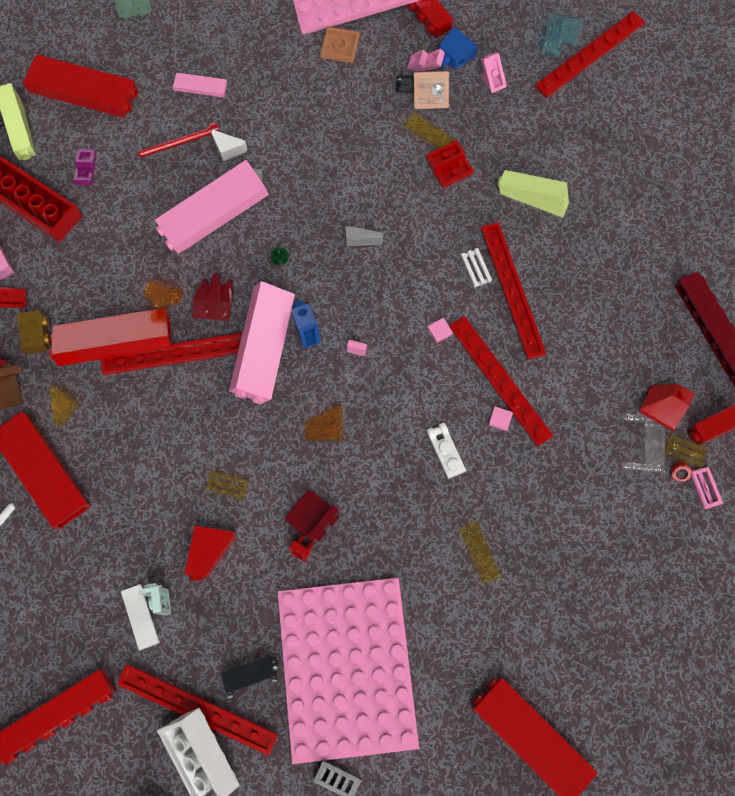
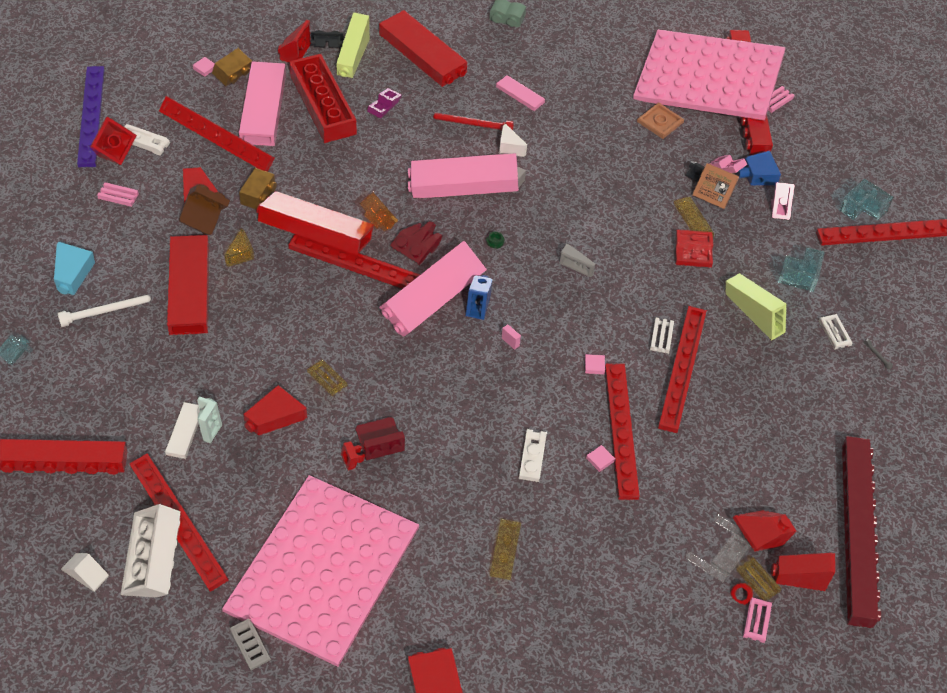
camera: 30 degrees right, 20 degrees down
(249, 675) = (238, 520): black brick -> none
(325, 426) = (441, 380): clear orange wing -> none
(554, 135) = (802, 272): none -> clear light blue brick
(605, 180) = (835, 344): none -> white tile

